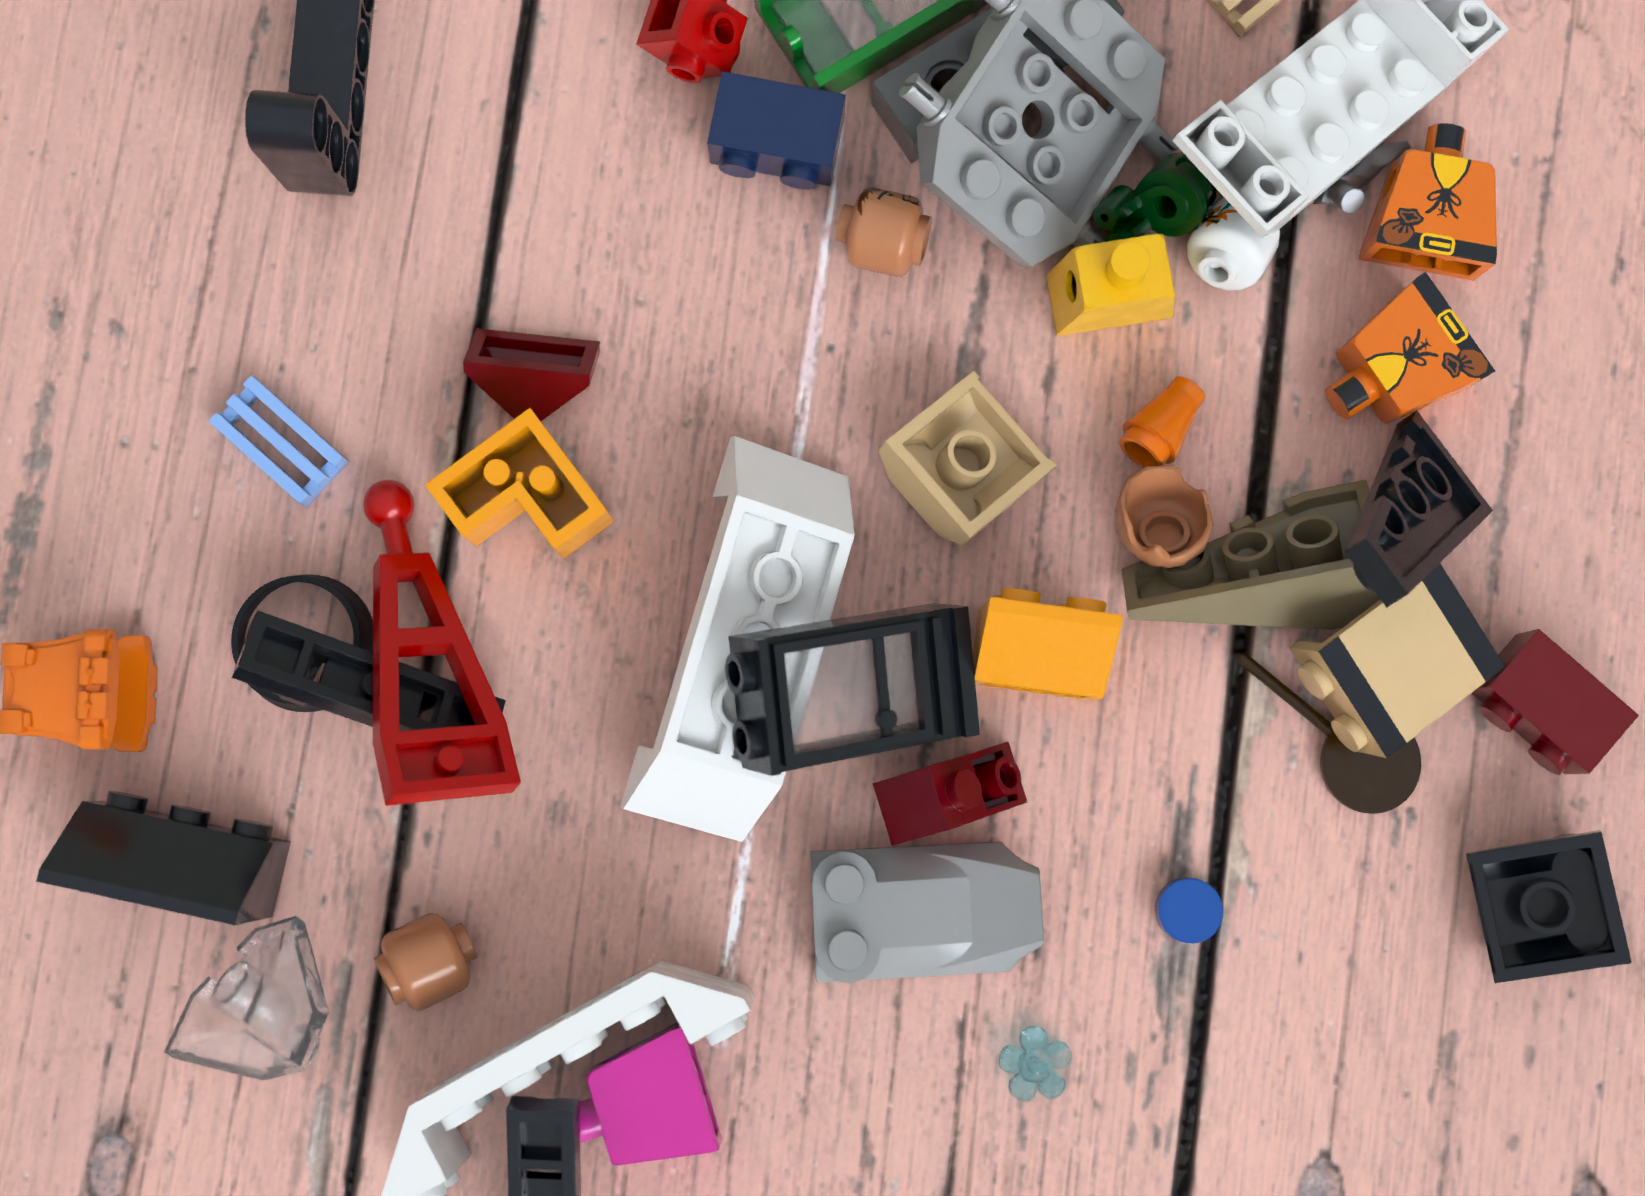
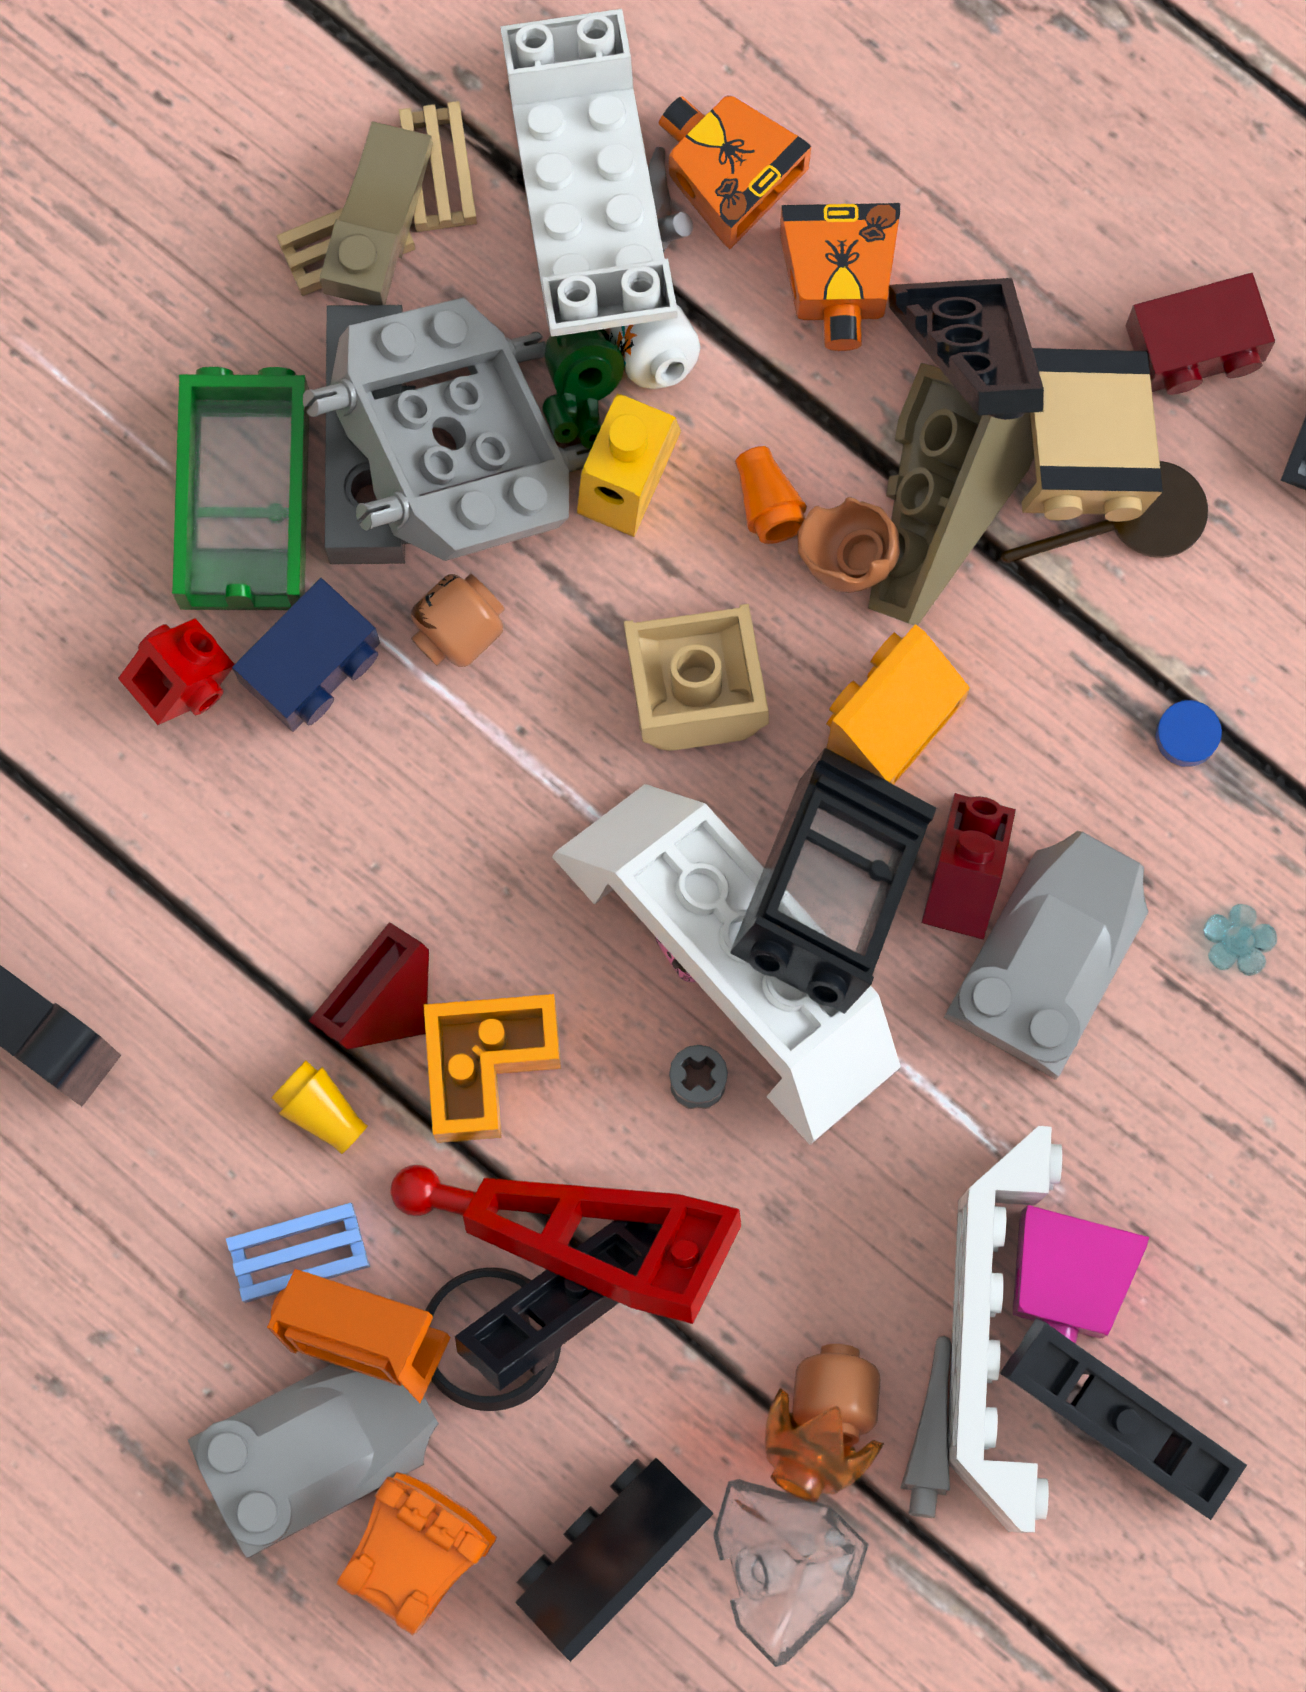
camera: 55 degrees left, 5 degrees down
(121, 553) = (309, 1452): none -> light grey slope
(227, 532) = (358, 1331): none -> orange window
(354, 977) = (812, 1455): none -> clear orange piece
(405, 380) = (319, 1107): none -> yellow cone
(418, 1073) = (928, 1463): none -> light grey piece
(614, 660) = (697, 1057): none -> dark grey bush

